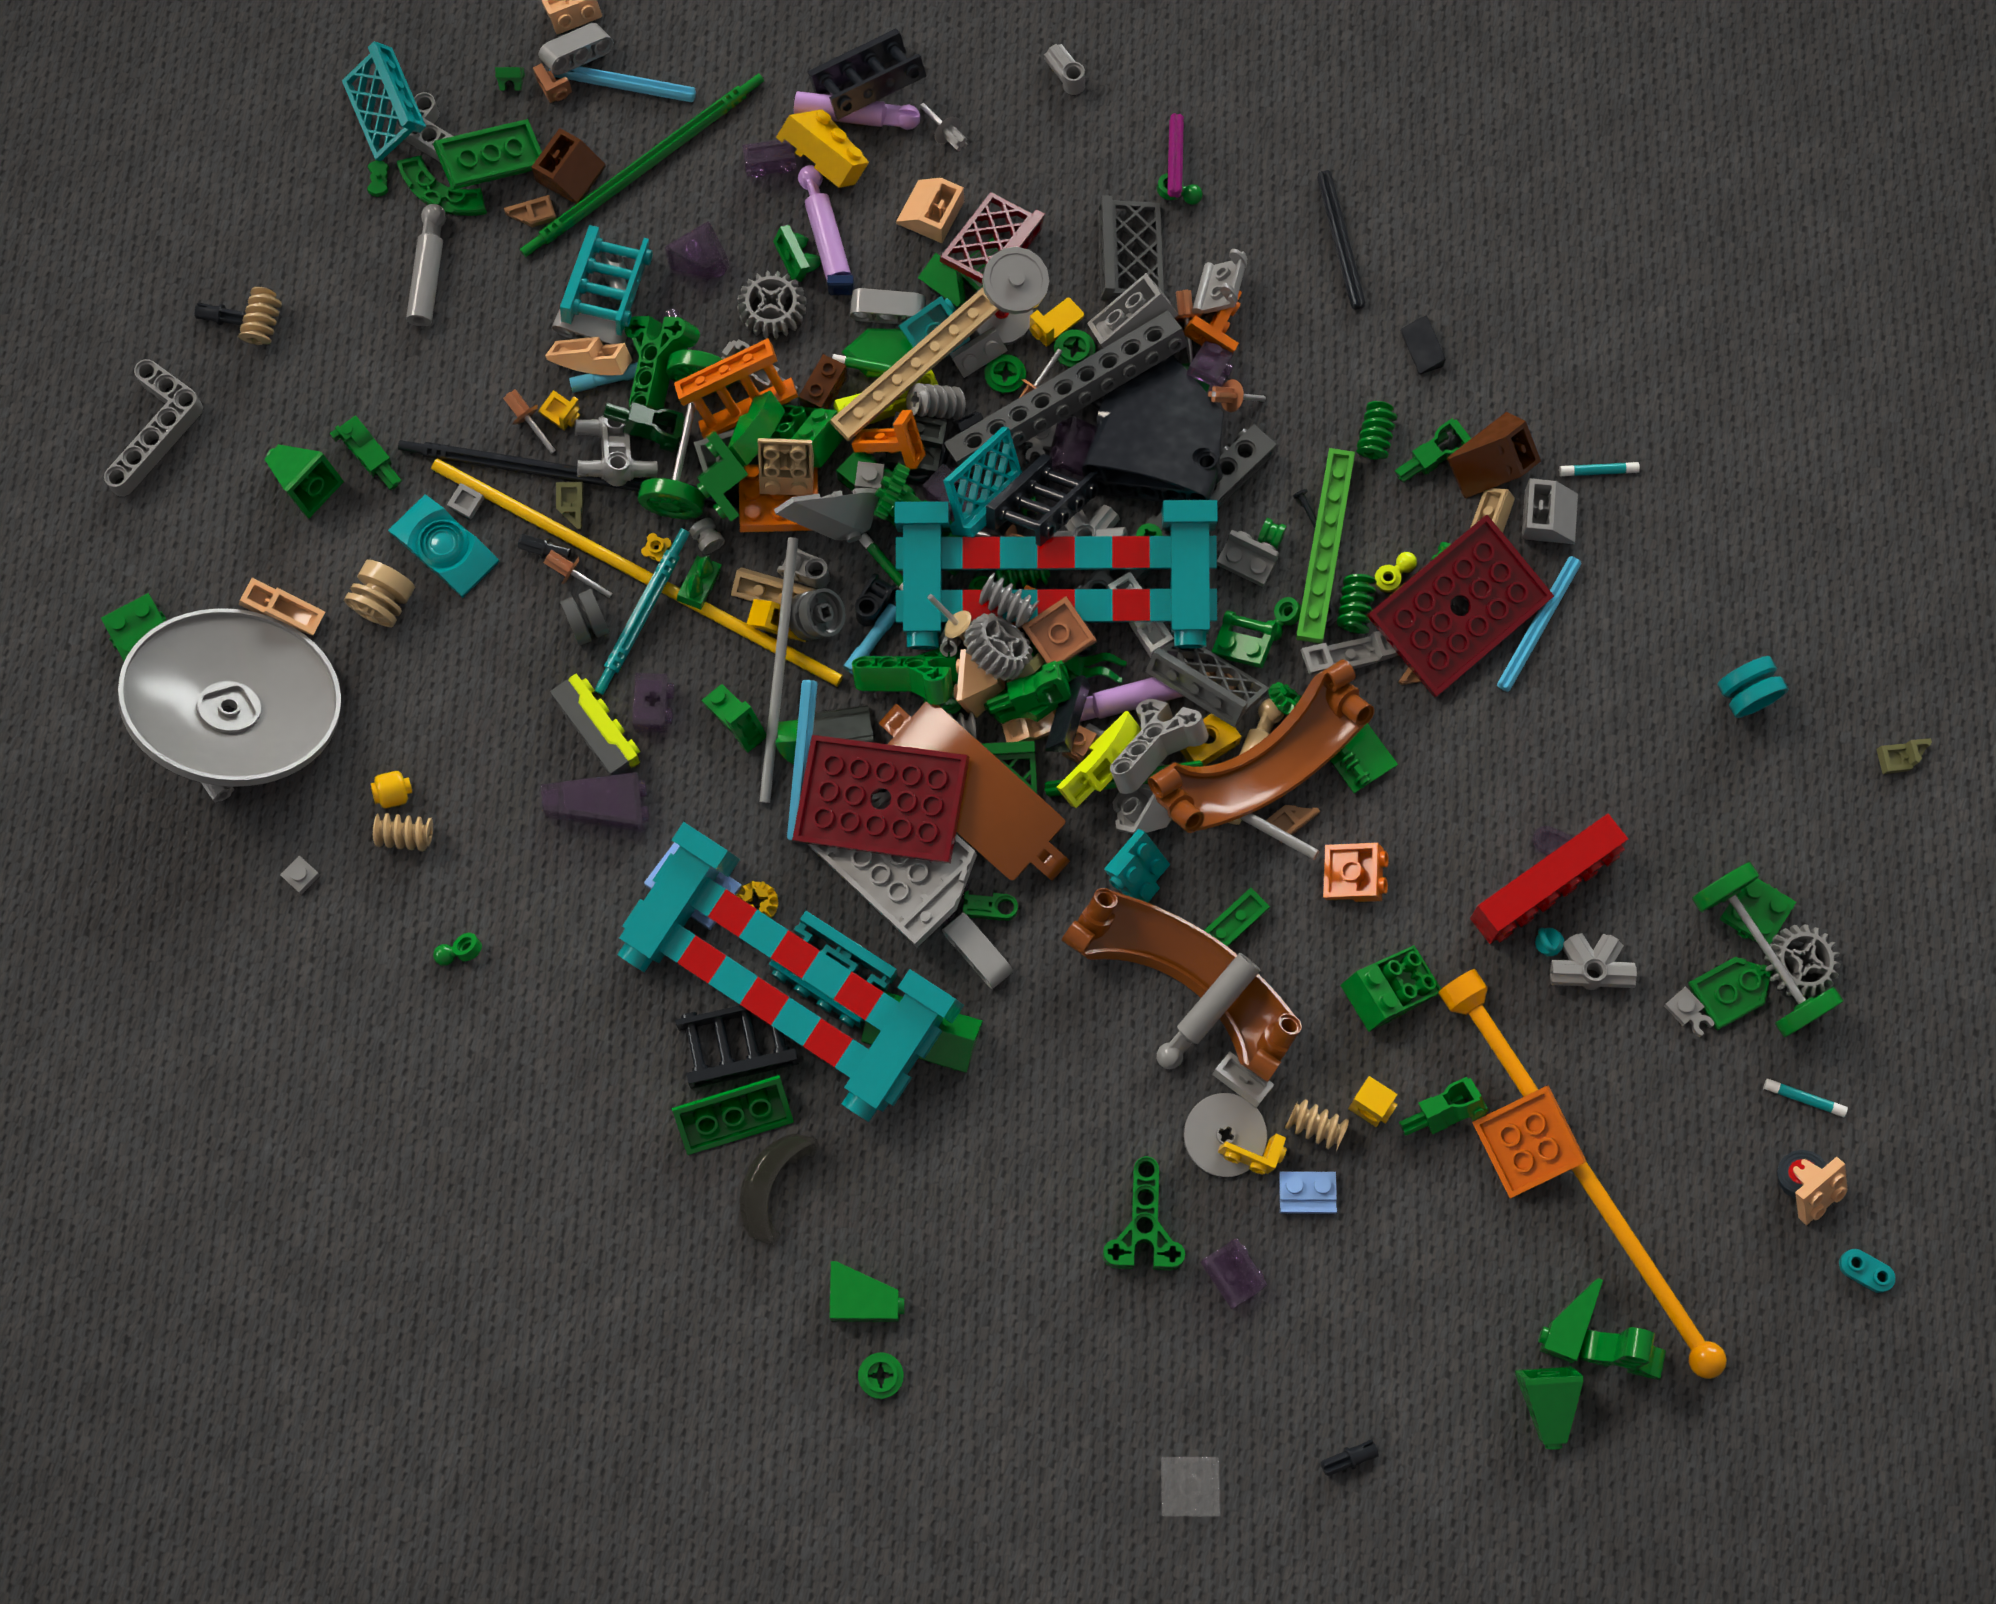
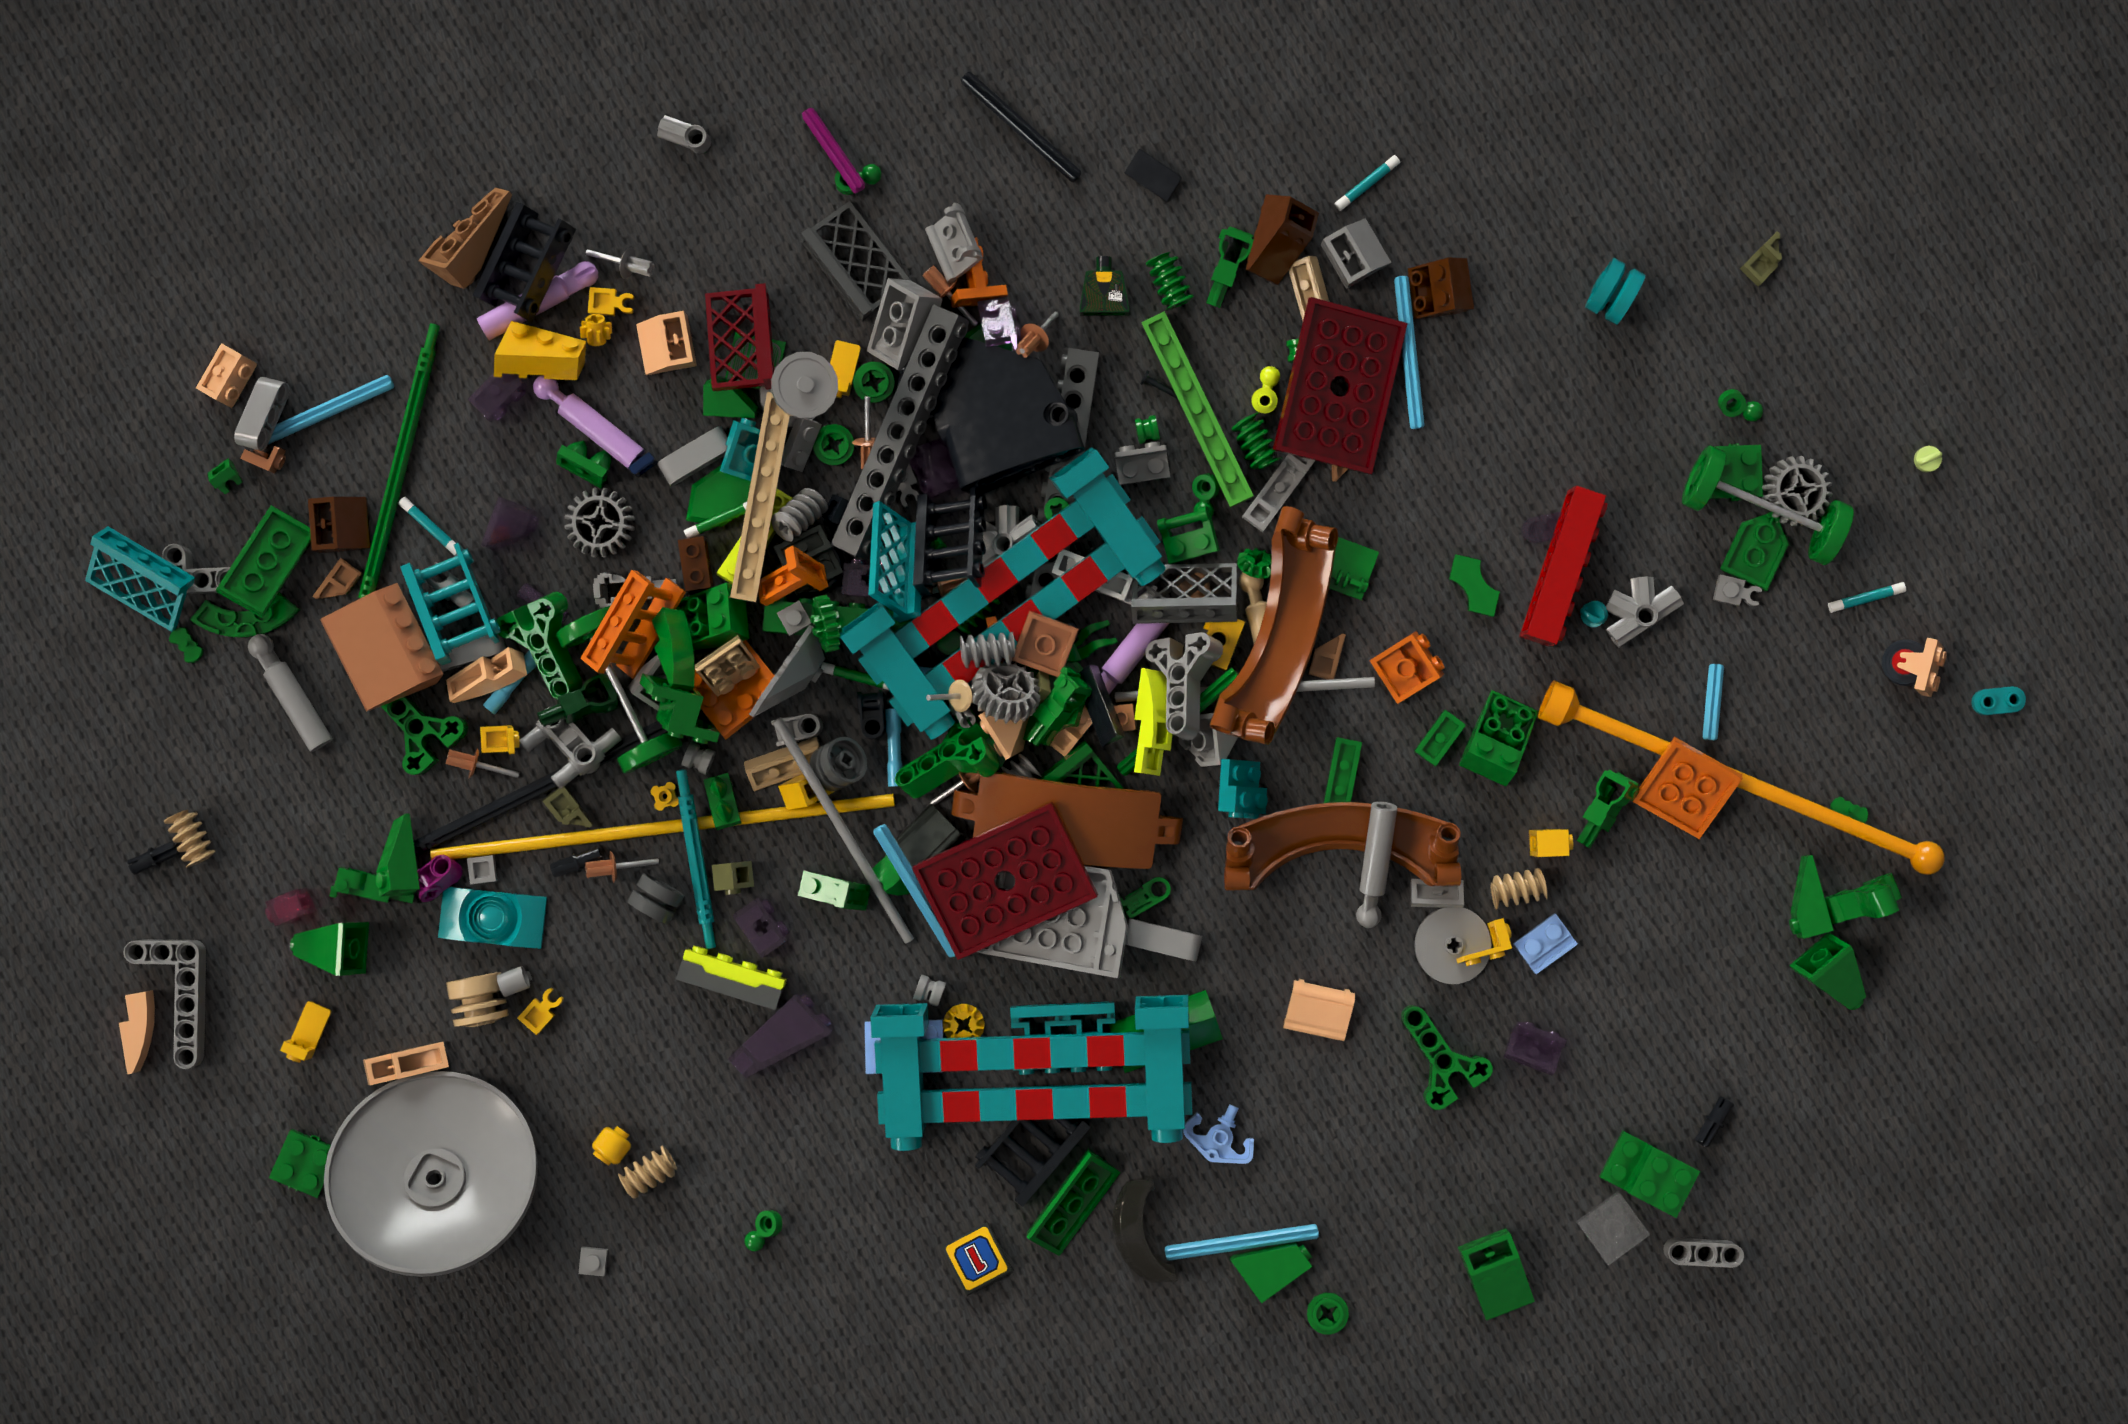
camera: 35 degrees left, 15 degrees up
(97, 433) = (138, 1031): none -> light nougat slope
(225, 529) = (307, 1032): none -> yellow bracket
(293, 419) = (290, 907): none -> clear pink brick
(399, 450) = (398, 867): none -> green slope
(418, 644) = (538, 1013): none -> yellow plate
(421, 599) = (514, 981): none -> light grey piece
(426, 478) = (434, 879): none -> magenta piece
(493, 369) = (415, 743): none -> green beam
(526, 275) = (382, 647): none -> nougat slope
(616, 1105) = (977, 1259): none -> slope
(635, 214) = (430, 526): none -> teal bar
(660, 644) = (732, 876): none -> olive brick
(749, 852) = (924, 989): none -> light grey wheel
(824, 40) = (465, 249): none -> medium nougat wedge
(852, 1257) = (1241, 1242): none -> medium azure axle
(883, 161) = (595, 330): none -> yellow gear
(896, 1155) = (1218, 1141): none -> light blue piece
(907, 148) = (605, 301): none -> yellow plate
(914, 703) = (967, 779): none -> piece
(1055, 1450) = (1496, 1273): none -> green slope
(1067, 1106) = (1319, 1010): none -> light nougat piece
(1257, 1458) = (1649, 1174): none -> green bracket
(1270, 1574) = (1714, 1258): none -> light grey beam
(1315, 404) = (1104, 291): none -> torso
(1340, 951) = (1439, 738): none -> green plate
(1460, 859) = (1480, 596): none -> green tile
(1603, 589) = (1440, 288): none -> reddish brown slope
(1604, 1090) = (1713, 702): none -> medium azure axle
(1665, 1269) = (1848, 809): none -> green piece
(1806, 870) = (1751, 410): none -> green plate
(1940, 1018) = (1928, 459): none -> yellowish green tile

